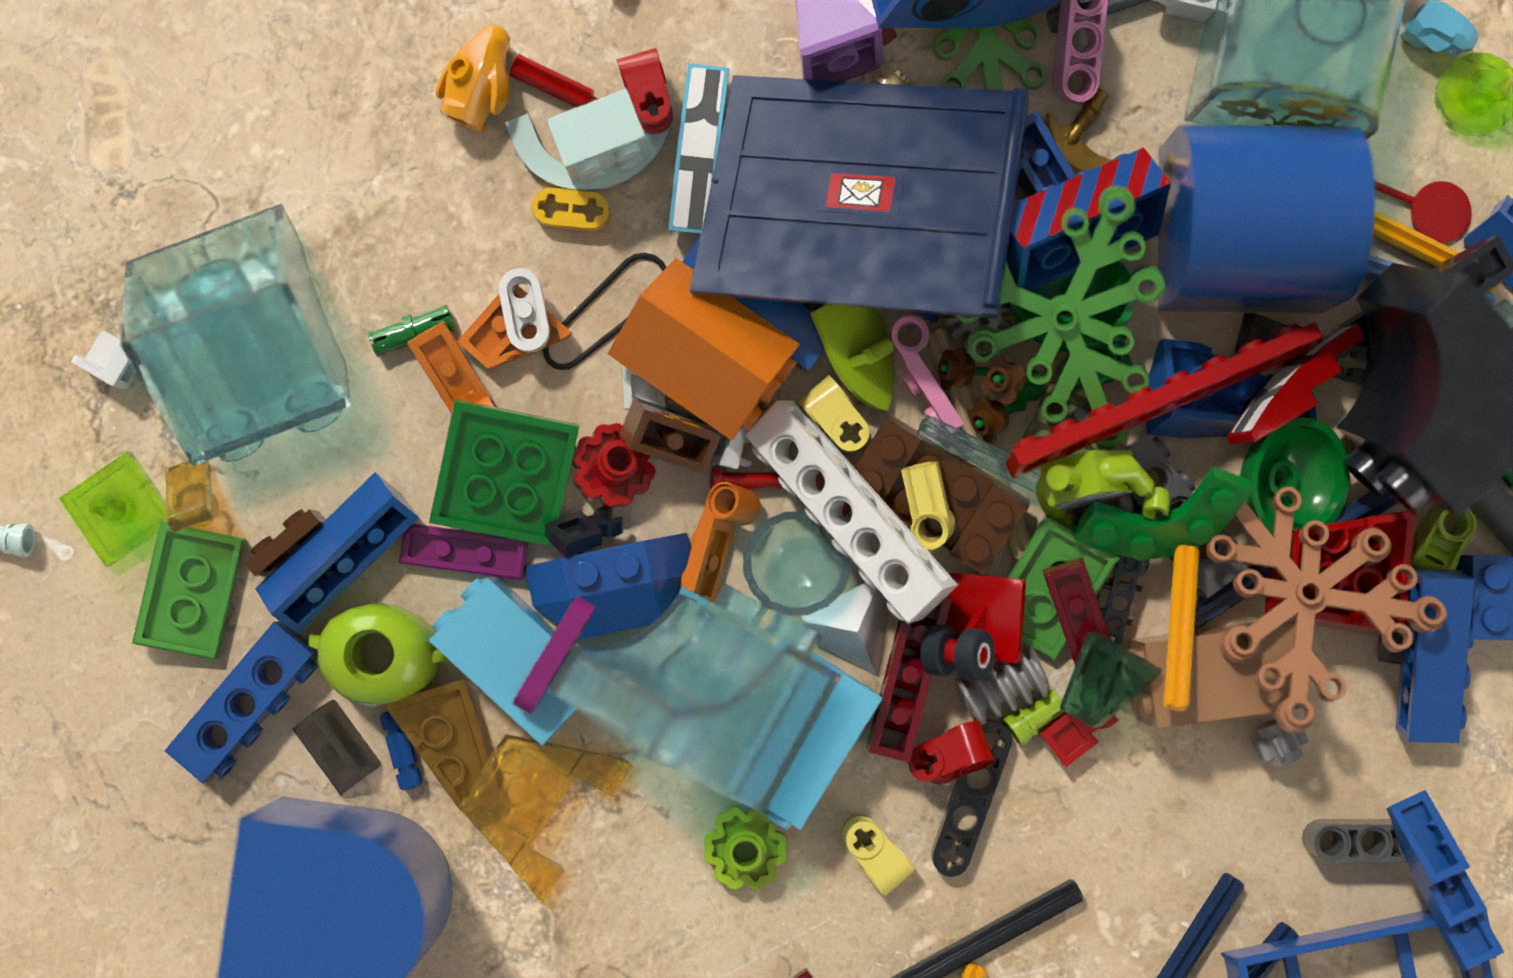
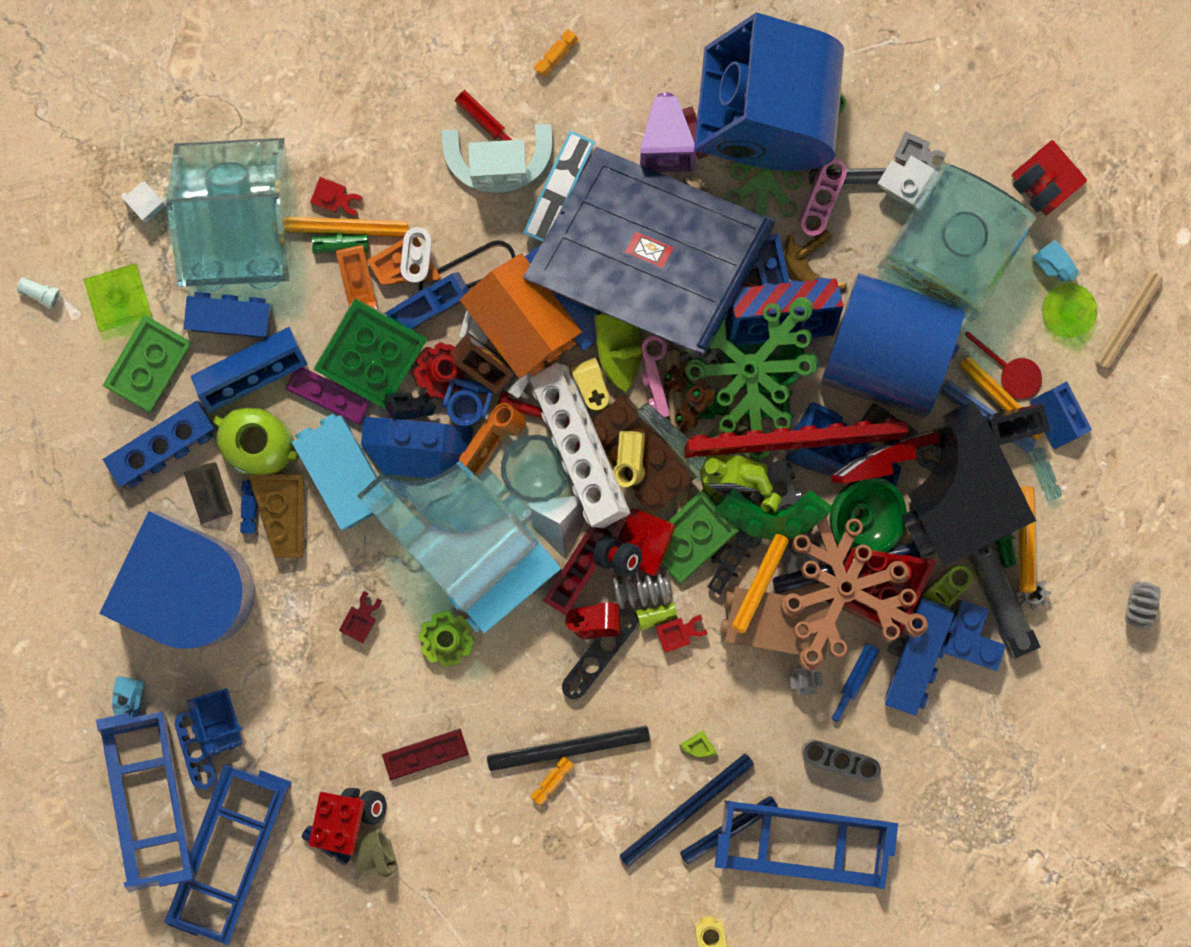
camera: 20 degrees right, 0 degrees up
(189, 496) = (167, 303): clear yellow tile -> none
(272, 552) = (206, 356): reddish brown plate -> none
(282, 484) = (227, 315): none -> blue brick
(377, 266) = (331, 196): none -> red plate
(414, 302) = (348, 226): none -> light orange axle
(476, 79) = (432, 98): light orange animal -> none
(521, 792) = (318, 556): clear yellow wing -> none
(554, 655) = (366, 476): magenta beam -> none
(566, 371) = (430, 301): none -> blue slope
(572, 200) = (468, 193): yellow beam -> none
(612, 863) = (358, 621): none -> dark red plate
(646, 86) = (538, 135): red piece -> none
(665, 505) = (465, 406): none -> blue piece
(880, 857) = (530, 673): light yellow piece -> none
(1075, 603) = (703, 564): dark red tile -> none
(1105, 680) = (704, 603): clear green wing -> none
(1155, 883) = (698, 746): none -> lime tile
(1349, 715) = (856, 678): none -> blue axle
(1442, 880) = (875, 796): blue slope -> none

